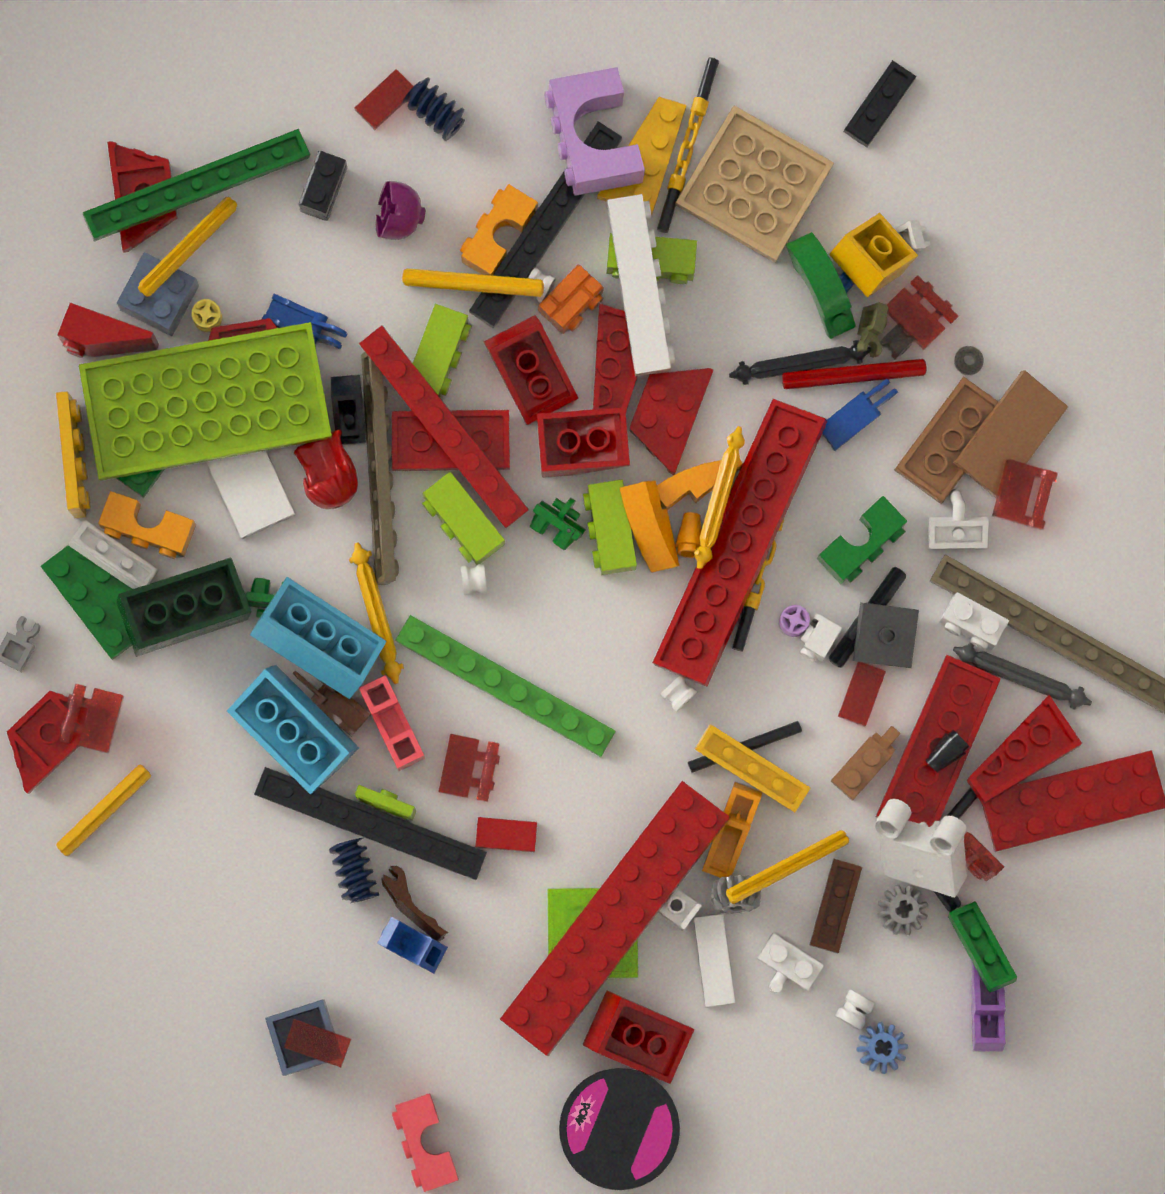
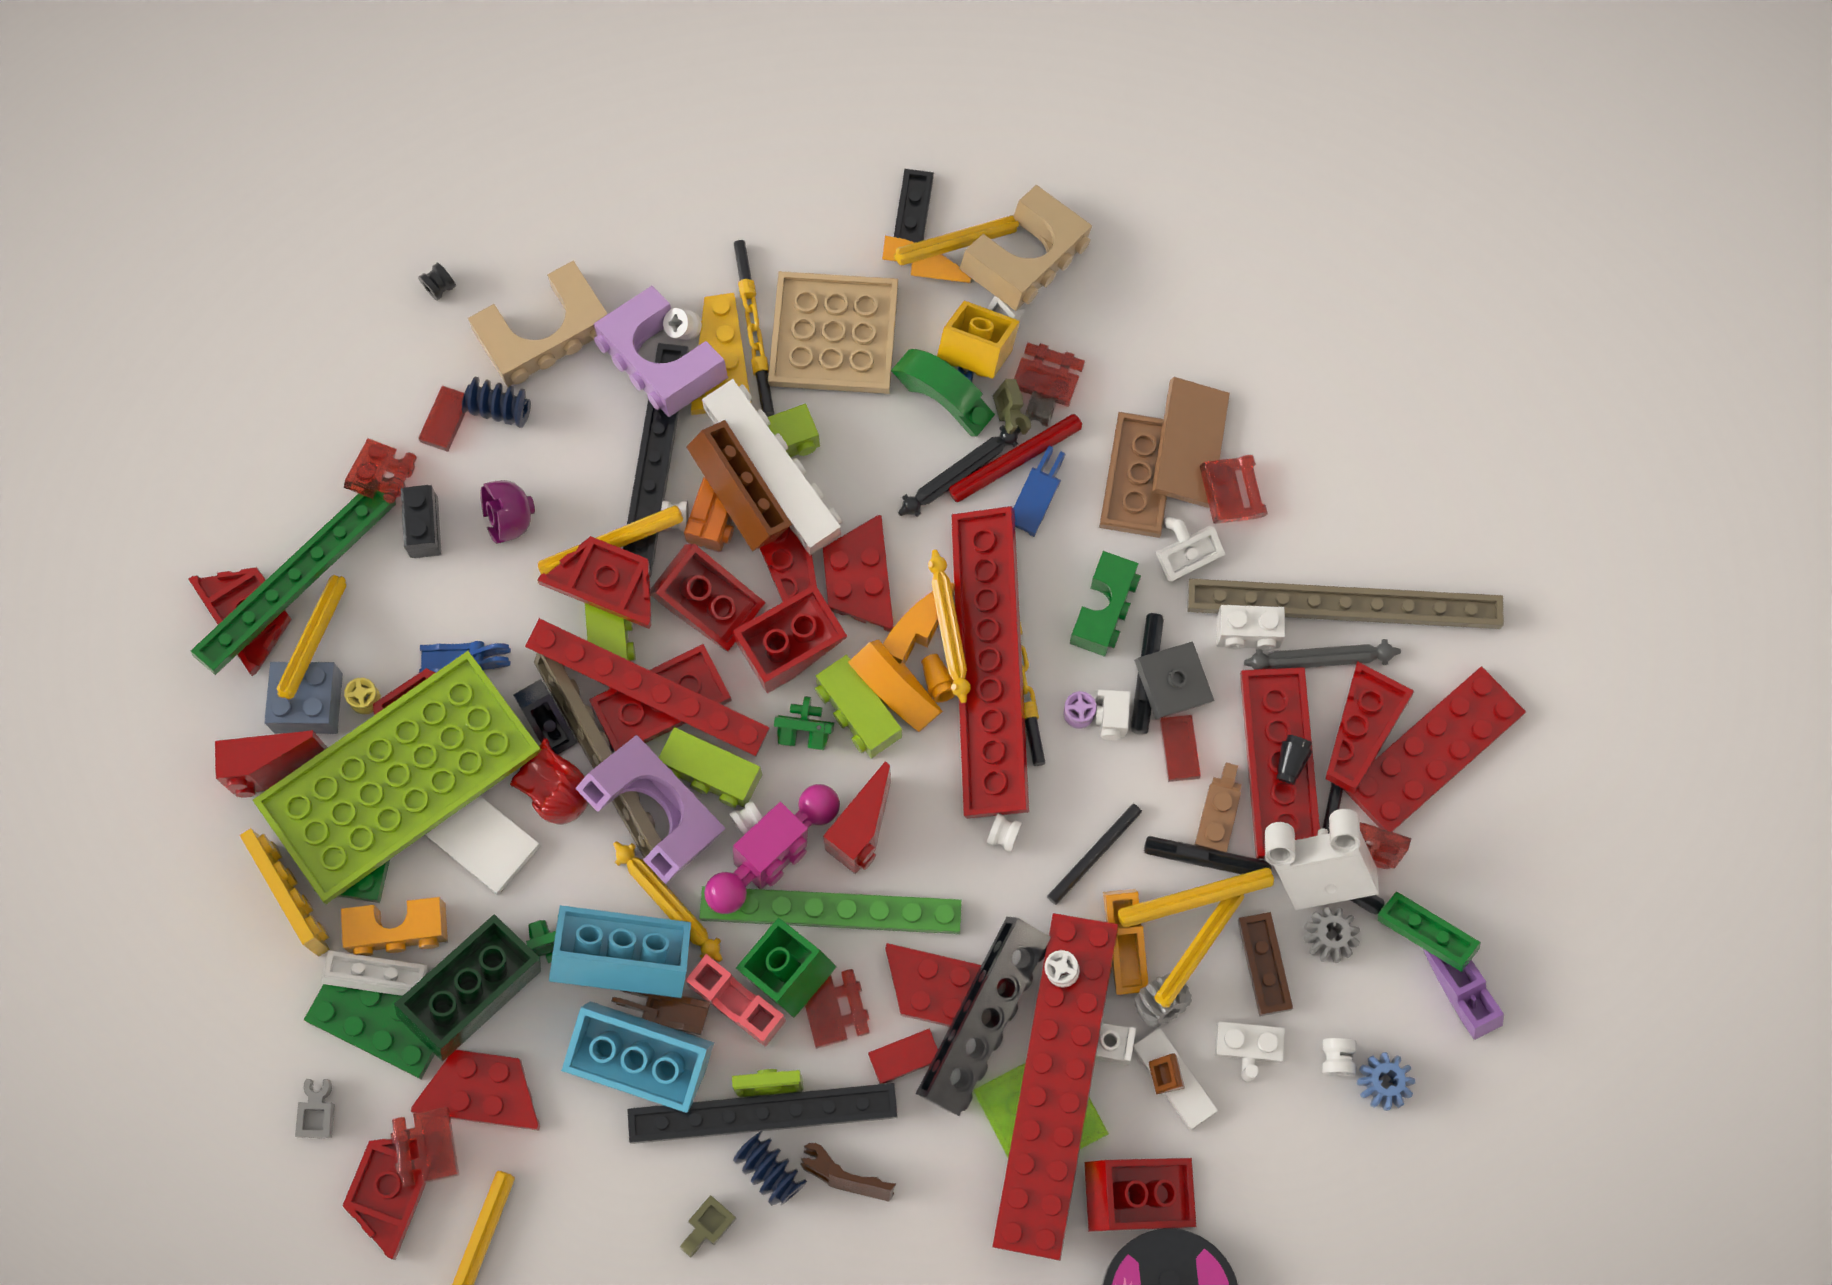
camera: 20 degrees left, 10 degrees down
(155, 693) = (481, 1091): none -> red wing
(287, 888) = (709, 1223): none -> olive plate
(301, 117) = (371, 467): none -> clear red plate
(412, 945) = (865, 1216): blue brick -> none
(425, 558) = (640, 770): none -> lavender arch
(445, 717) = (786, 967): none -> green brick
(452, 317) = (605, 579): none -> red wing
(472, 76) = (519, 357): none -> tan arch
(480, 612) = (770, 847): none -> dark pink brick
(509, 209) = (613, 460): light orange arch -> none
(559, 632) = (857, 829): none -> red slope
(563, 793) = (930, 984): none -> red wing
(568, 834) = (967, 1024): none -> black brick
(602, 290) = (738, 485): none -> dark orange brick
(633, 110) = (688, 329): none -> white wheel
(661, 826) = (1063, 962): none -> white wheel
(708, 954) = (1166, 1074): none -> dark orange slope
(752, 768) = (1113, 869): yellow plate -> none
(806, 825) = (1195, 897): none -> yellow axle
(832, 794) = (1202, 856): none -> black axle
(865, 157) = (934, 267): none -> light orange slope
(900, 154) = (954, 240): none -> yellow axle
(934, 217) = (1017, 278): none -> tan arch
(967, 369) = (1112, 403): clear smoke plate -> none

